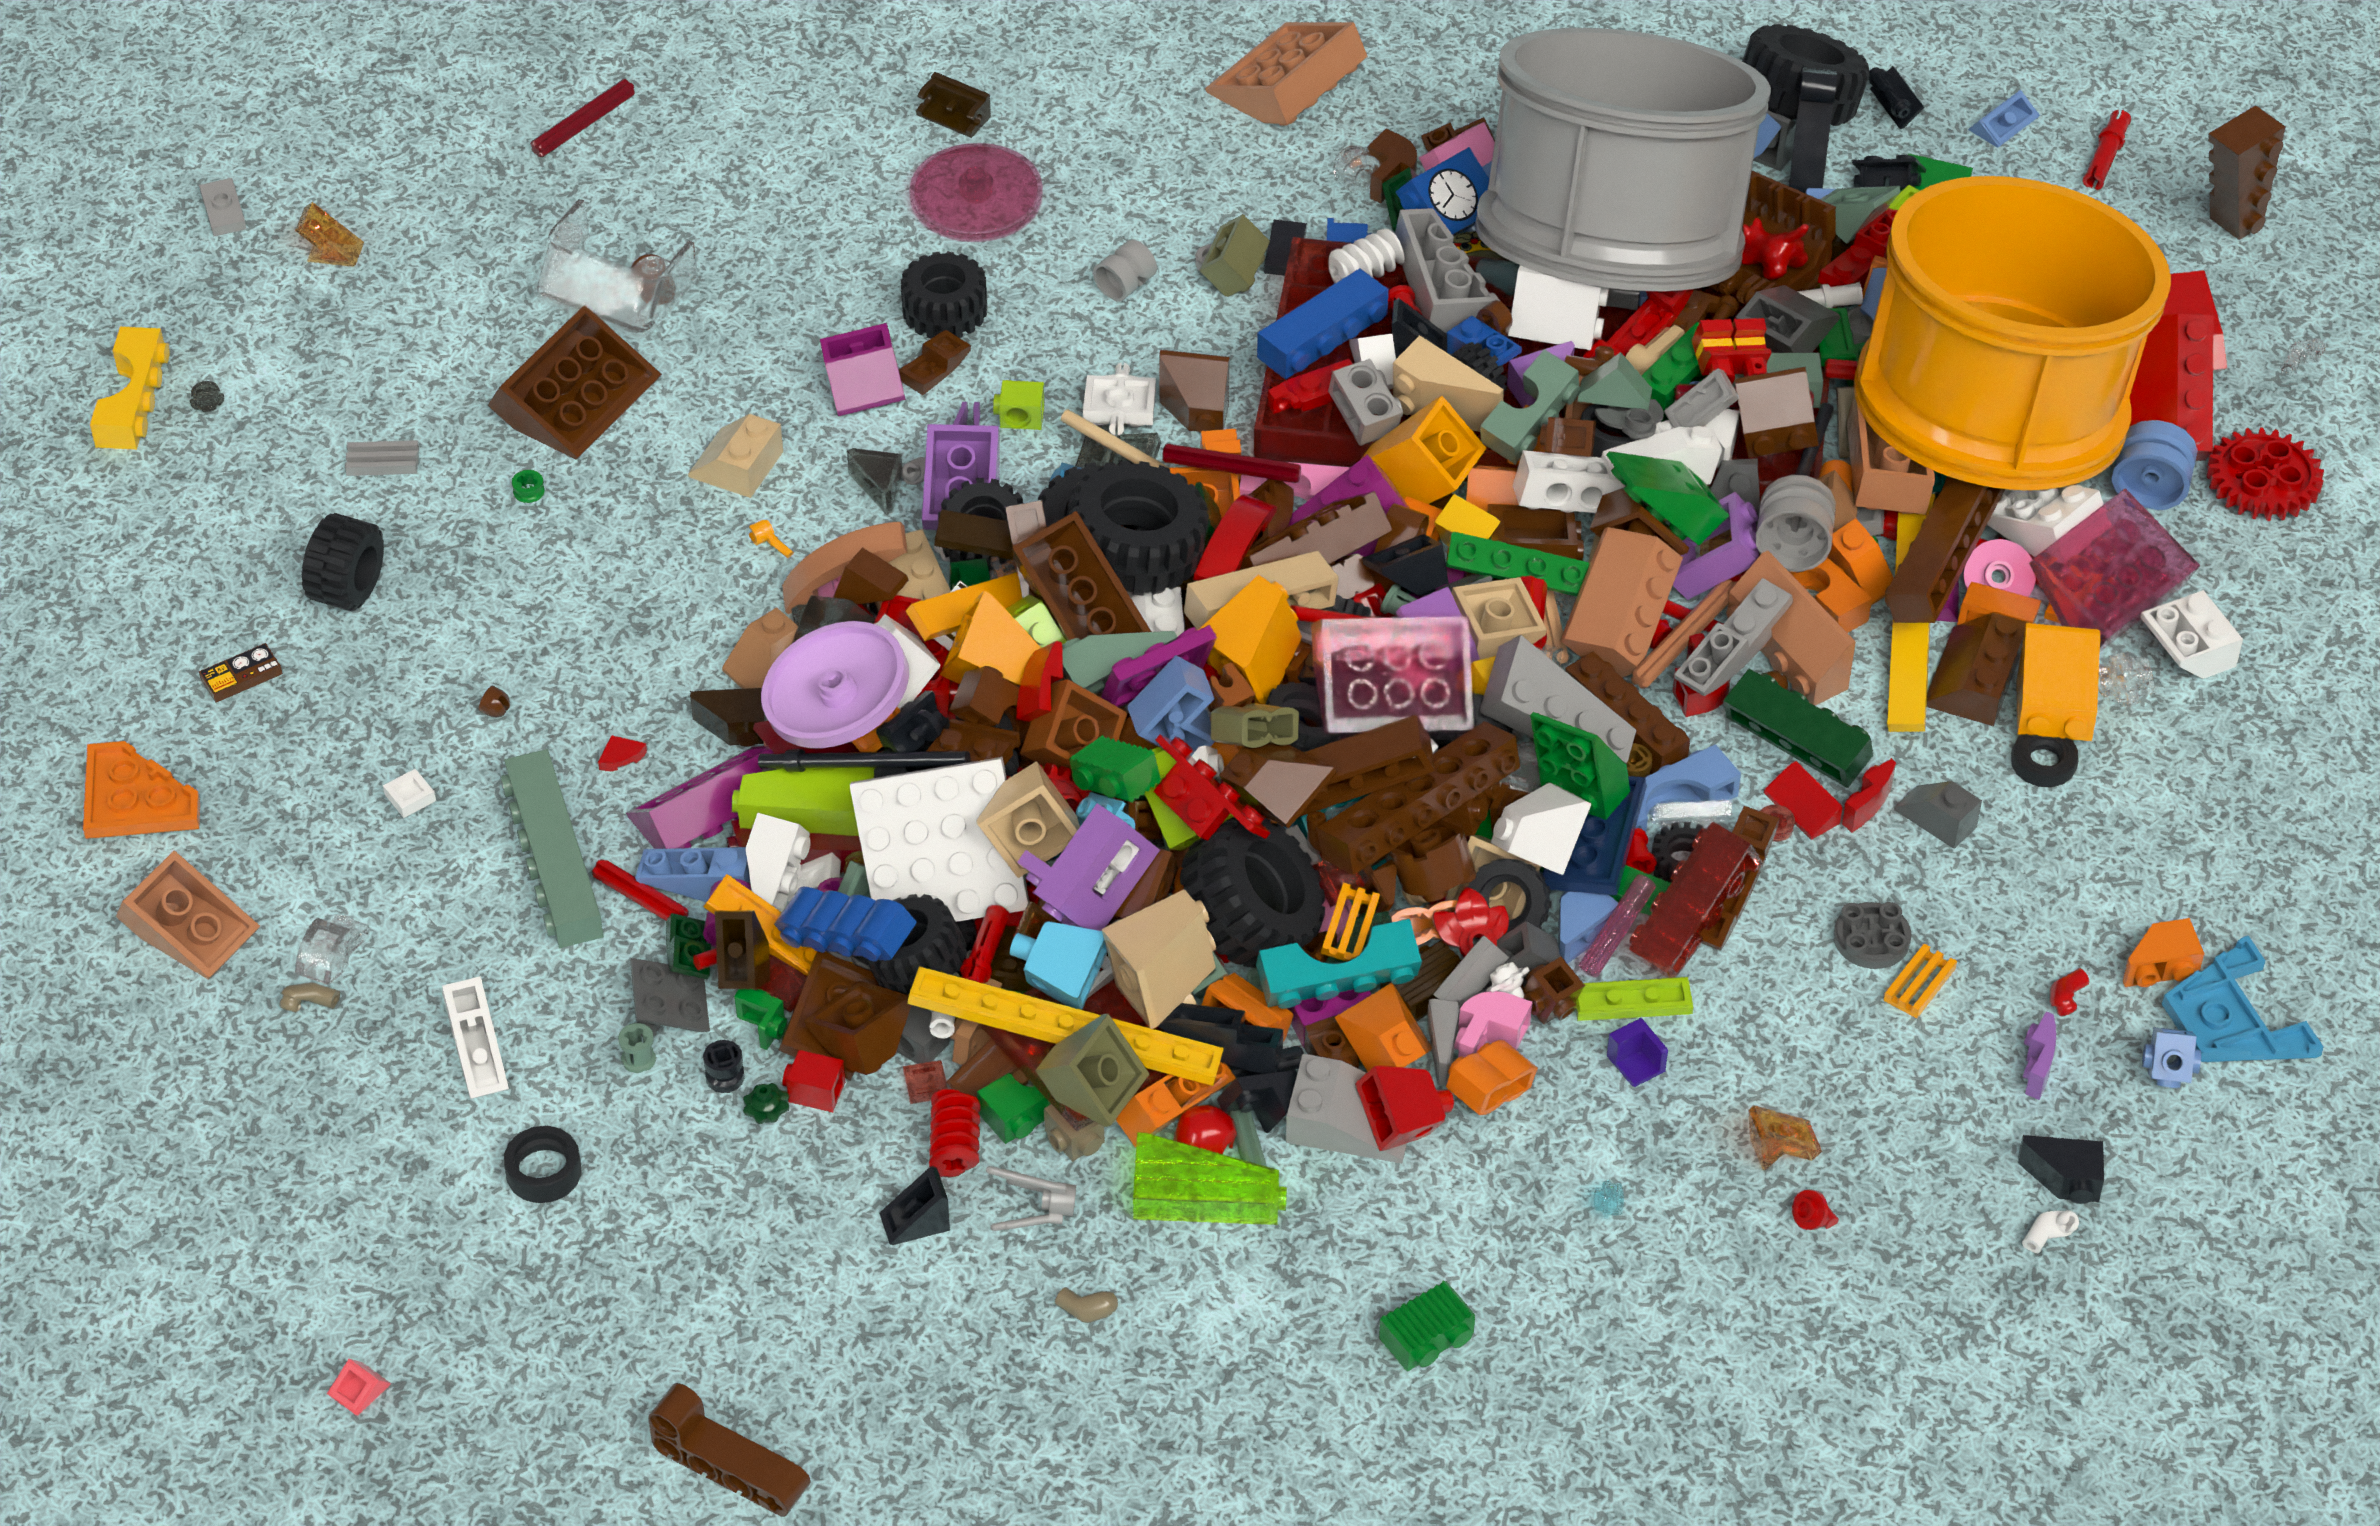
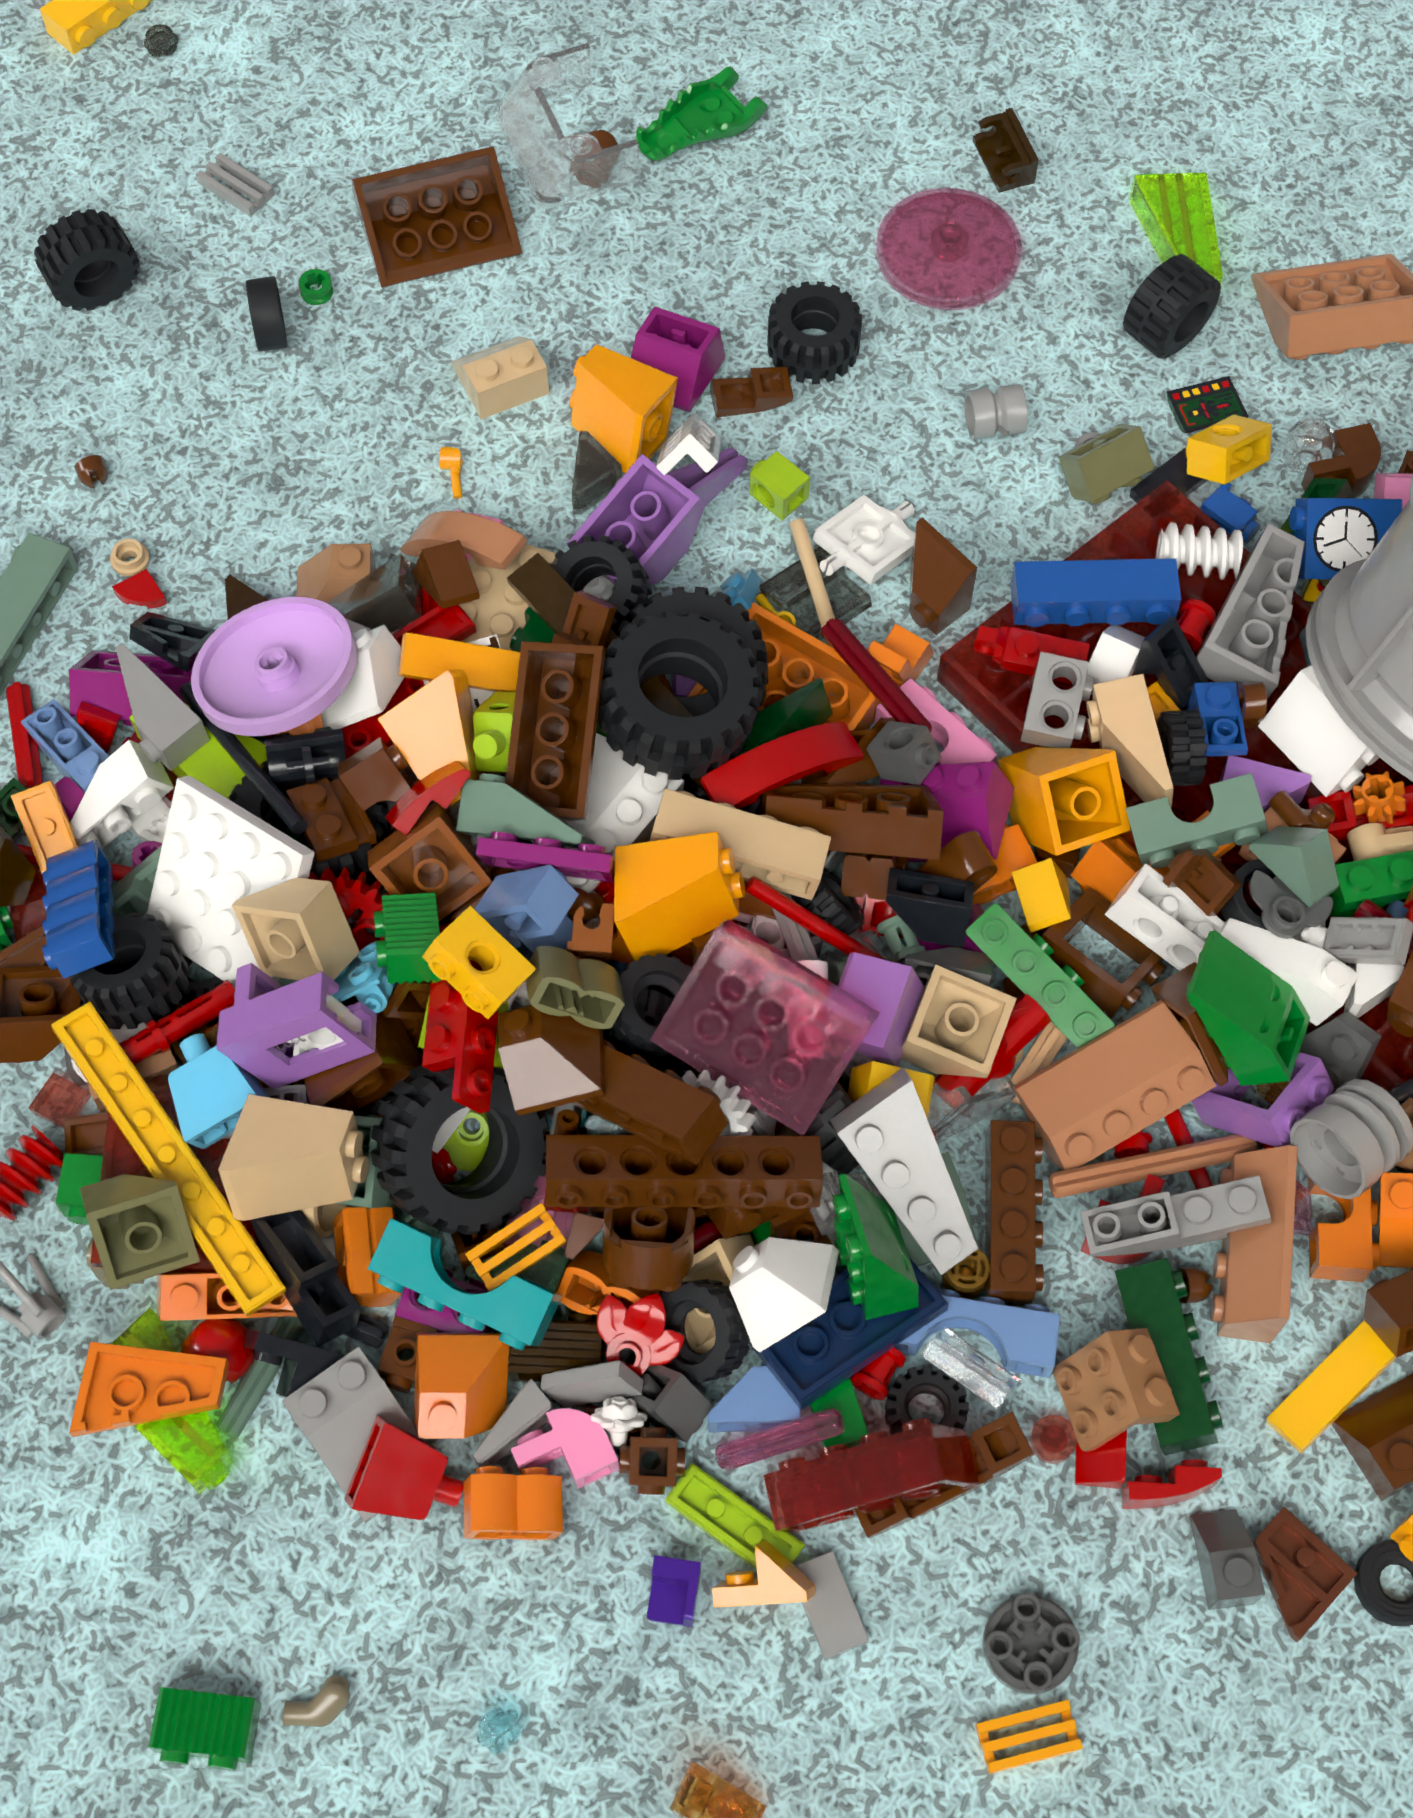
camera: 40 degrees right, 15 degrees up
(522, 517) = (266, 313): none -> black tyre
(588, 729) = (125, 549): none -> tan plate
(688, 760) = (170, 638): none -> black wing
(695, 838) = (98, 724): none -> red tile
(703, 207) = (699, 115): none -> green animal
(763, 779) = (163, 720): none -> light grey slope
(861, 413) = (622, 404): none -> light orange slope
(947, 404) = (691, 438): none -> white fence
(1132, 85) = (1178, 217): none -> clear neon green slope
(1183, 131) = (1171, 306): none -> black tyre
(1189, 738) = (476, 940): none -> yellow brick
(1190, 1166) = (144, 1386): none -> orange wing
(1258, 186) = (1205, 404): none -> piece
(1299, 490) = (904, 752): none -> dark grey brick
(1309, 198) = (1229, 449): none -> yellow brick
(1488, 1269) = (322, 1708): none -> dark tan arm
(1624, 328) = (1368, 798): none -> orange gear
(1695, 996) = (776, 1582): none -> slope
(1735, 999) = (832, 1608): none -> light grey tile
(1786, 759) = (1114, 1387): none -> medium nougat bracket
(1991, 782) = (1300, 1571): none -> copper wing

